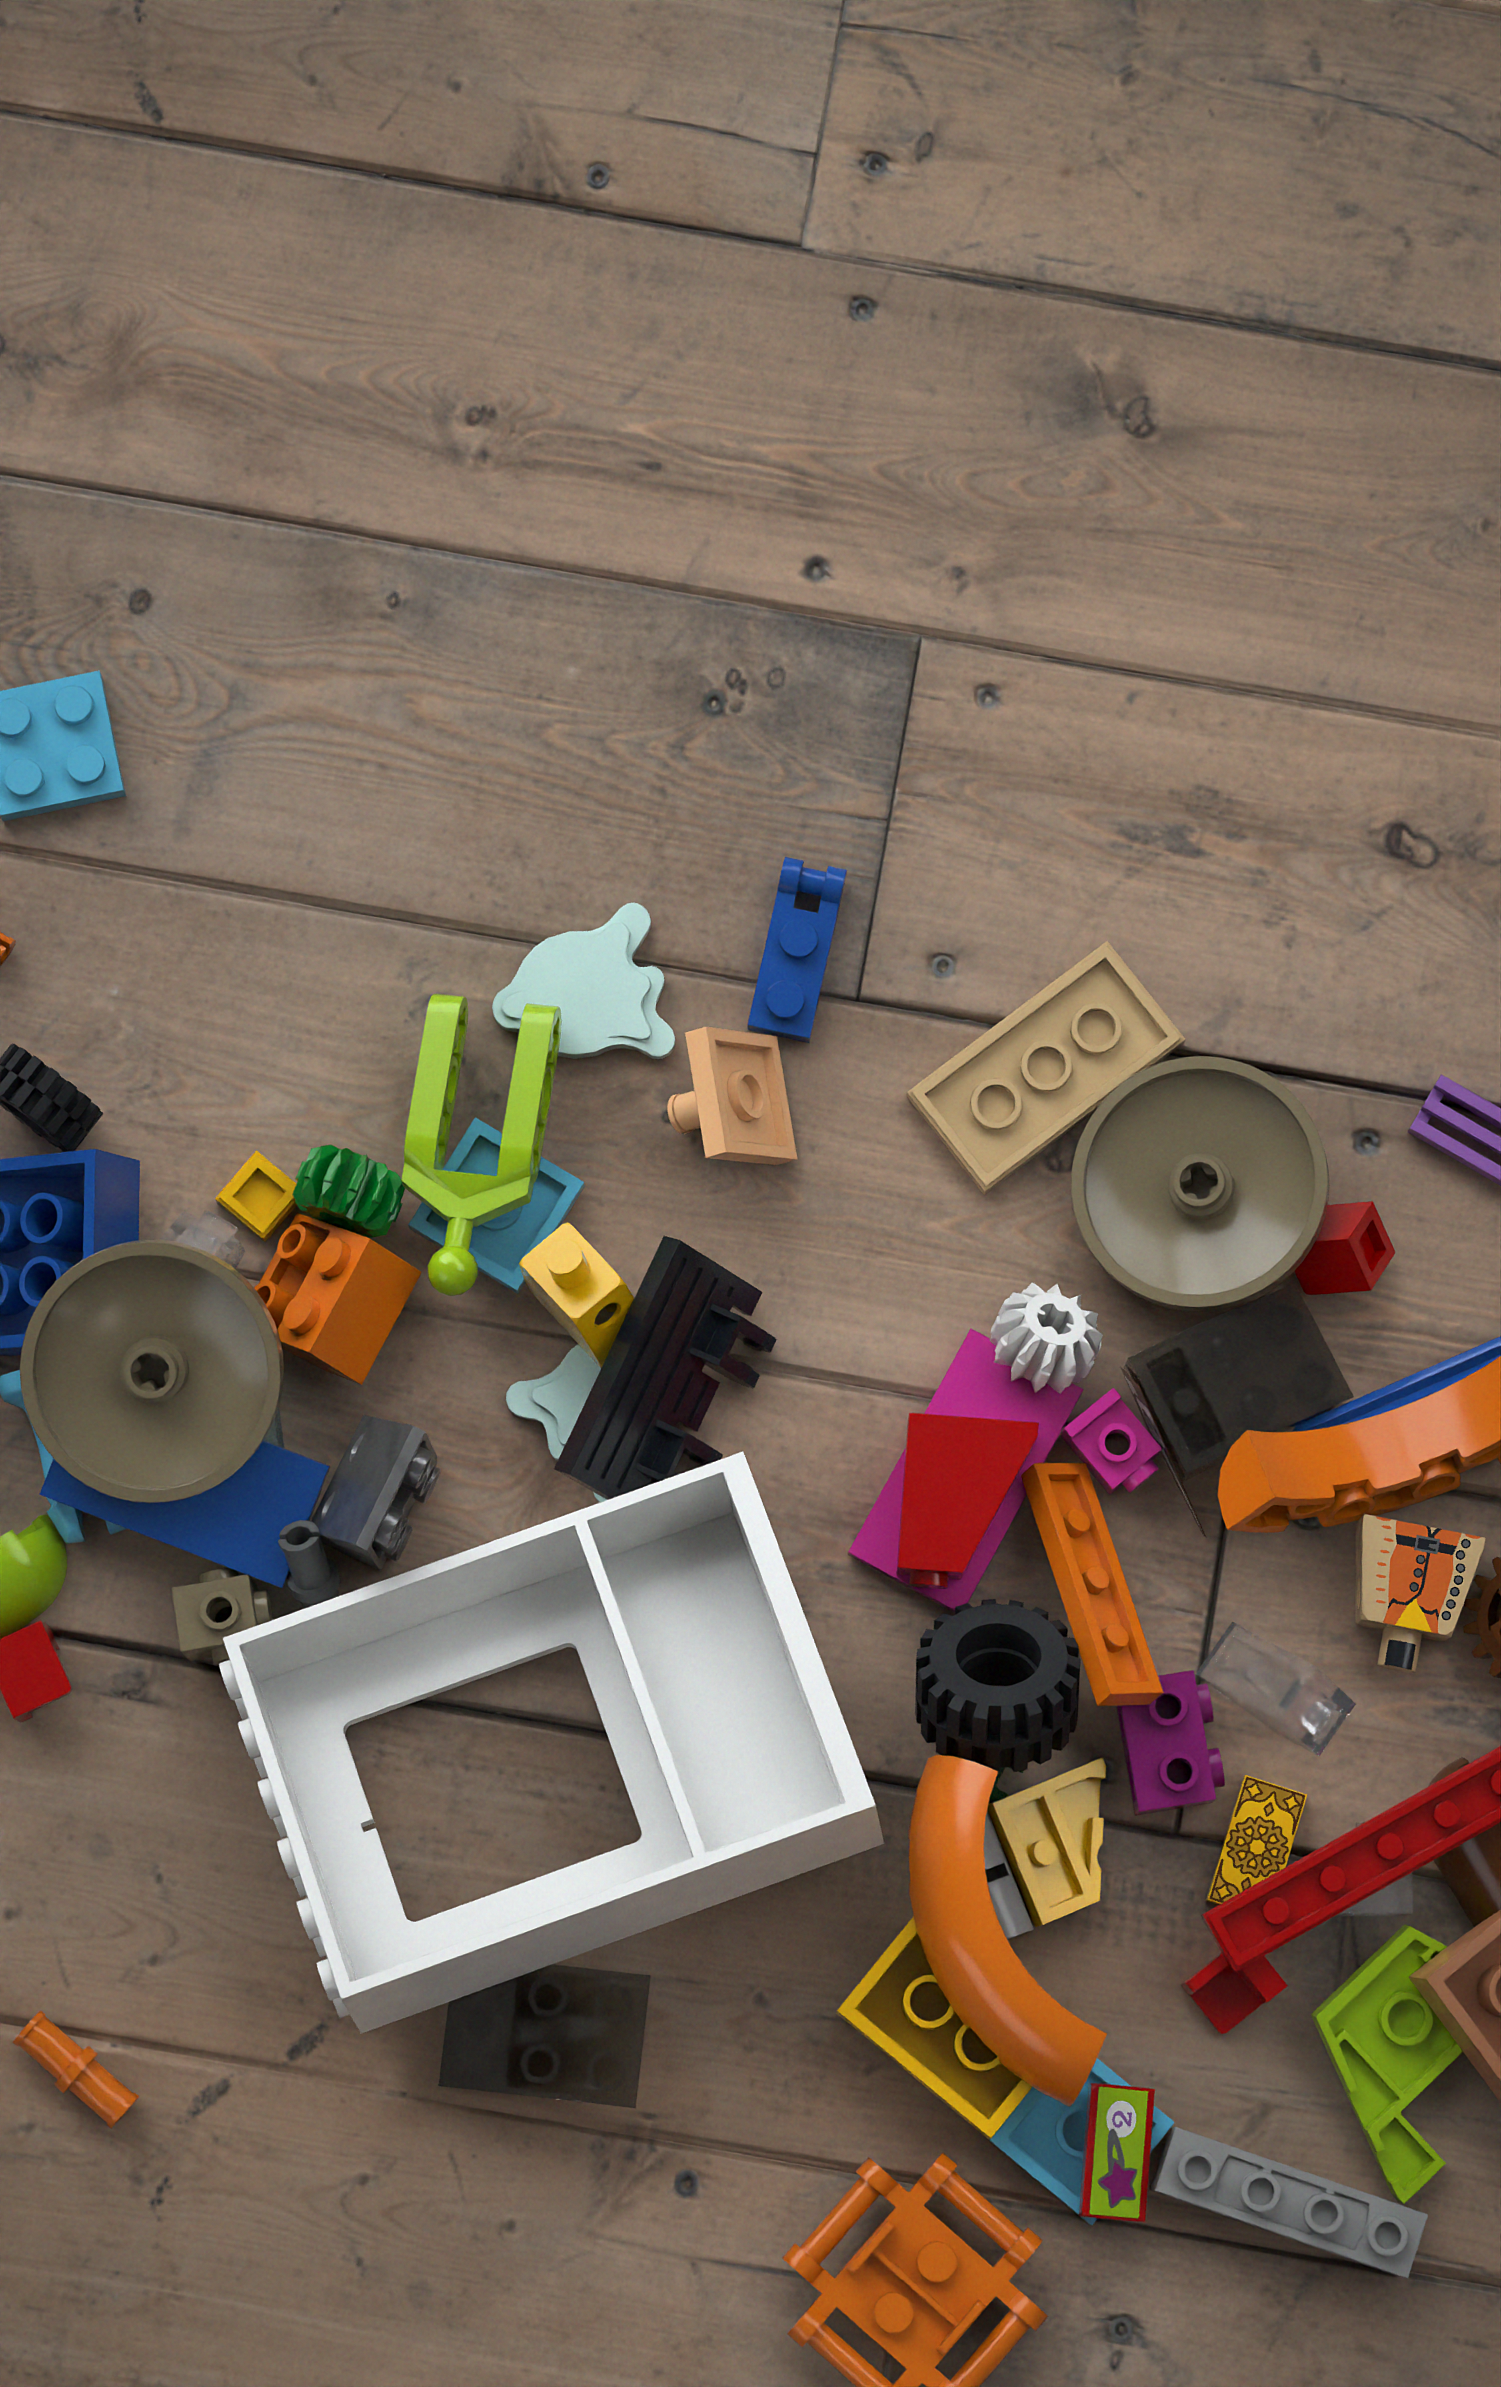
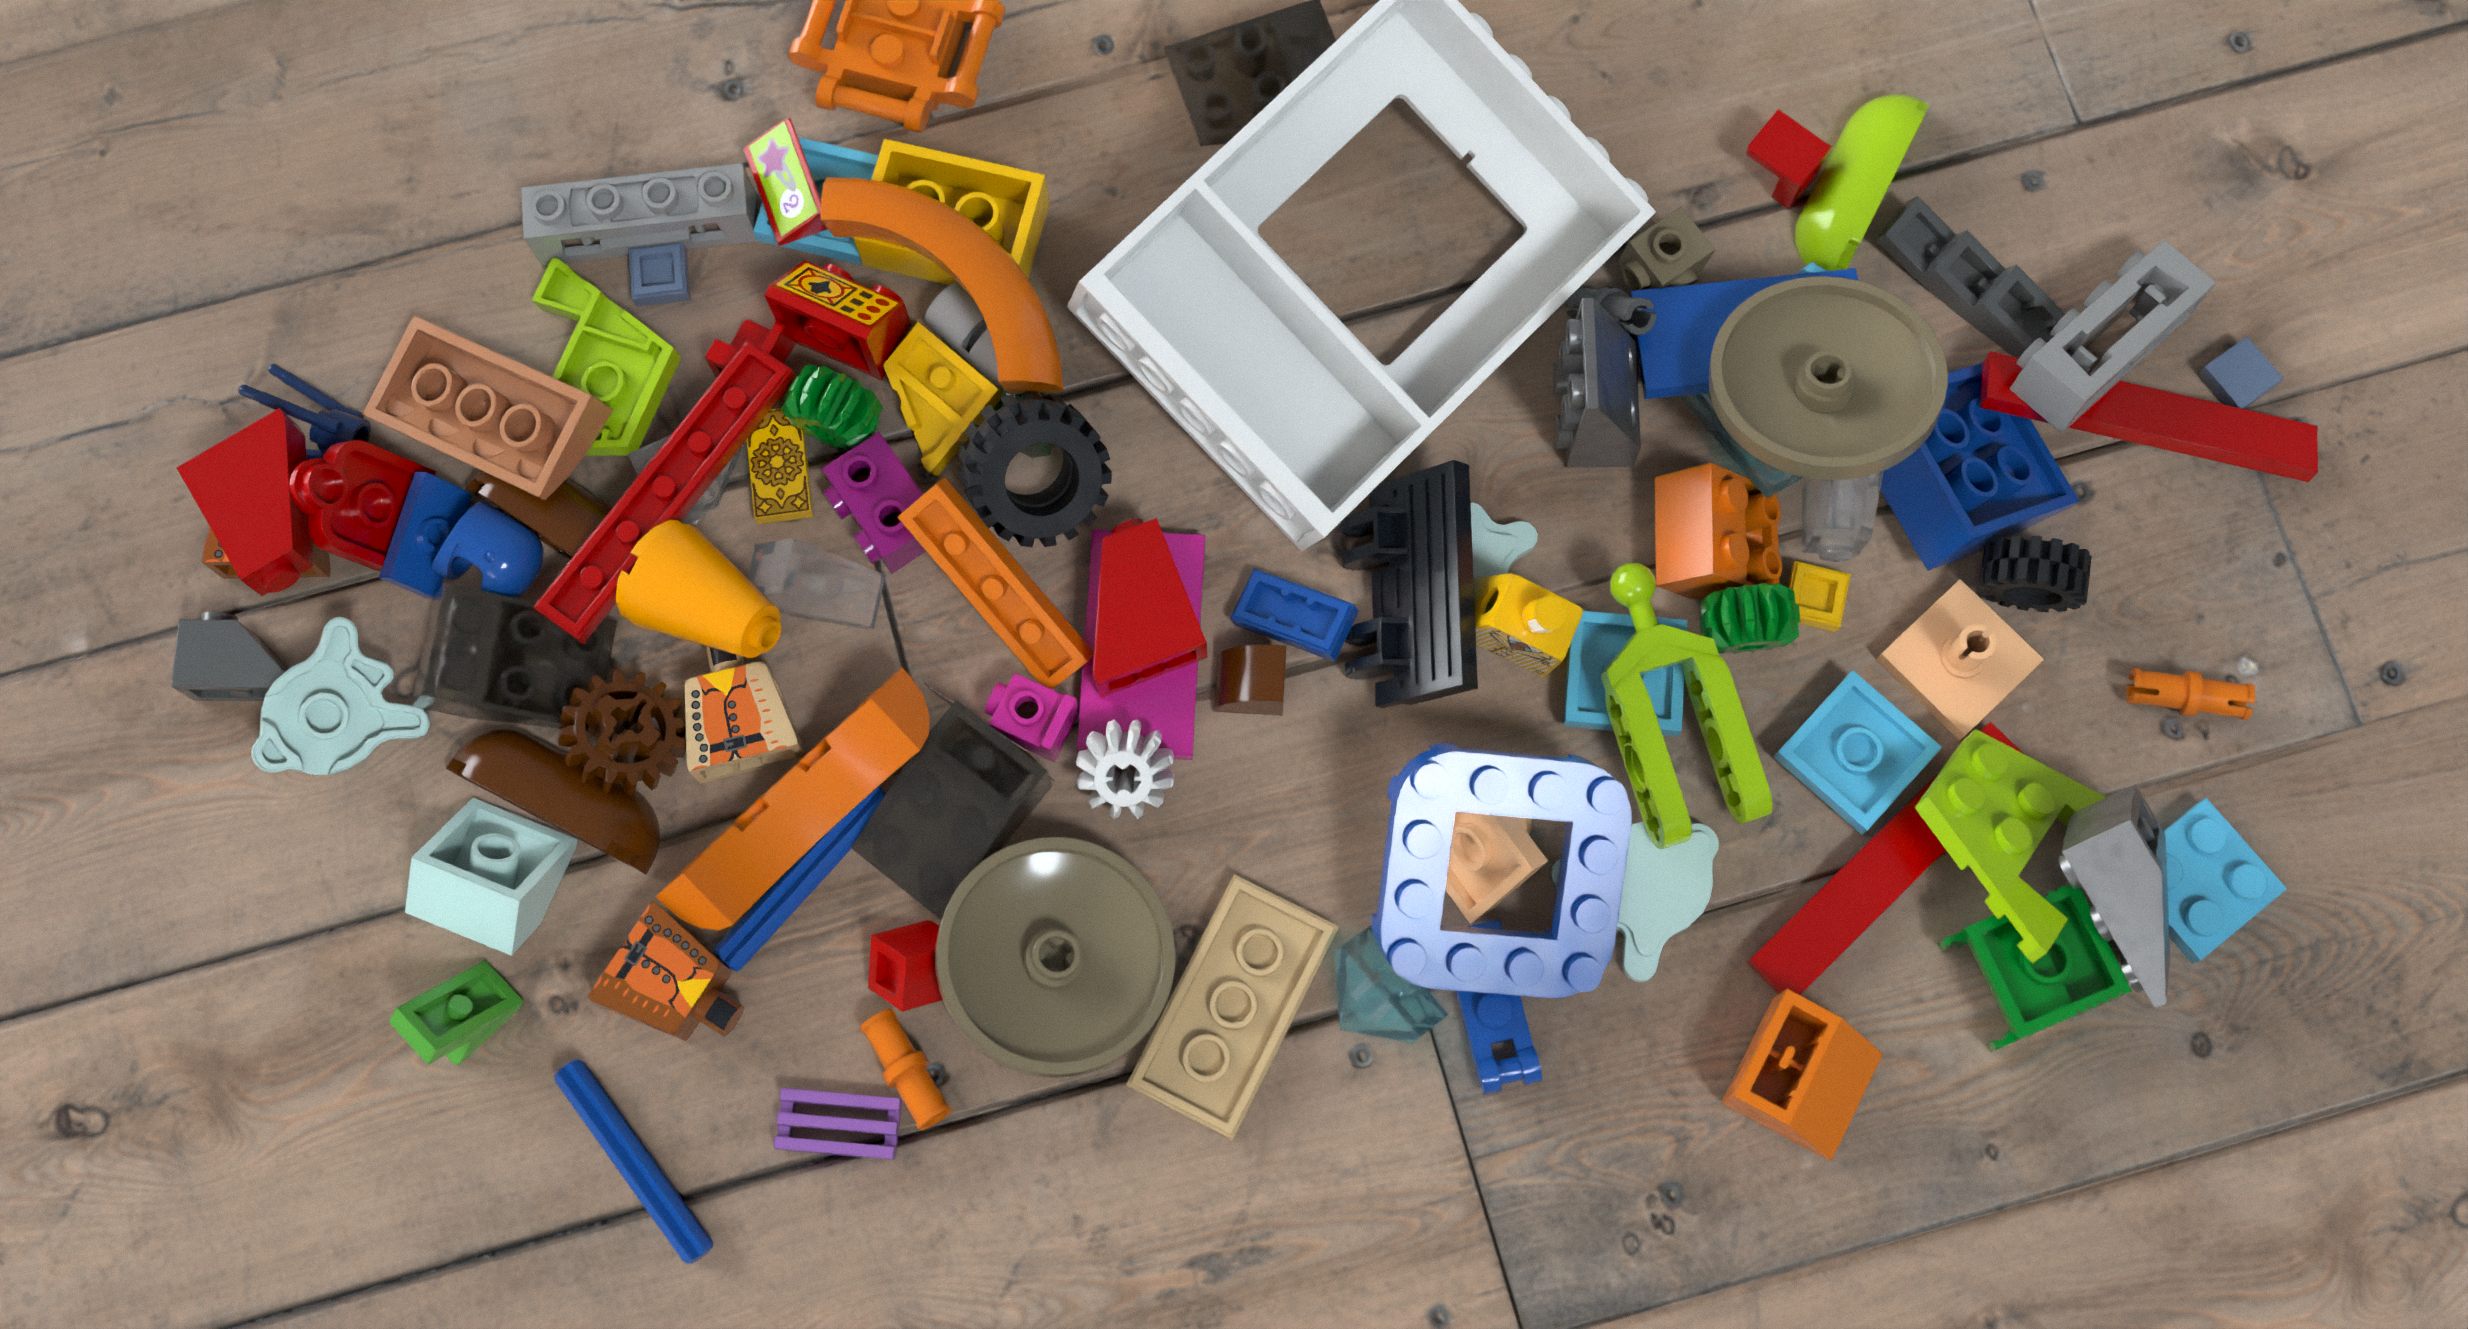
camera: 155 degrees right, 5 degrees down
(146, 758) = (2121, 863): none -> flat silver slope
(154, 1065) = (1959, 659): none -> light nougat tile
(224, 885) = (1991, 815): none -> lime wing
(259, 733) = (2061, 984): none -> green piece
(311, 1019) = (1857, 752): none -> medium azure plate
(336, 902) = (1852, 897): none -> red tile
(540, 742) = (1803, 1074): none -> orange slope
(798, 1422) = (1294, 615): none -> blue plate
(803, 1102) = (1416, 865): none -> plate
(875, 1376) = (1251, 680): none -> reddish brown brick
(895, 1009) = (1376, 998): none -> clear light blue slope
(1120, 1973) = (840, 316): none -> red slope
(1176, 1865) = (832, 407): none -> green gear
(1295, 2133) = (659, 274): none -> sand blue tile
(1392, 1153) = (906, 1069): none -> orange pin
(1399, 1711) = (695, 593): none -> light orange cone

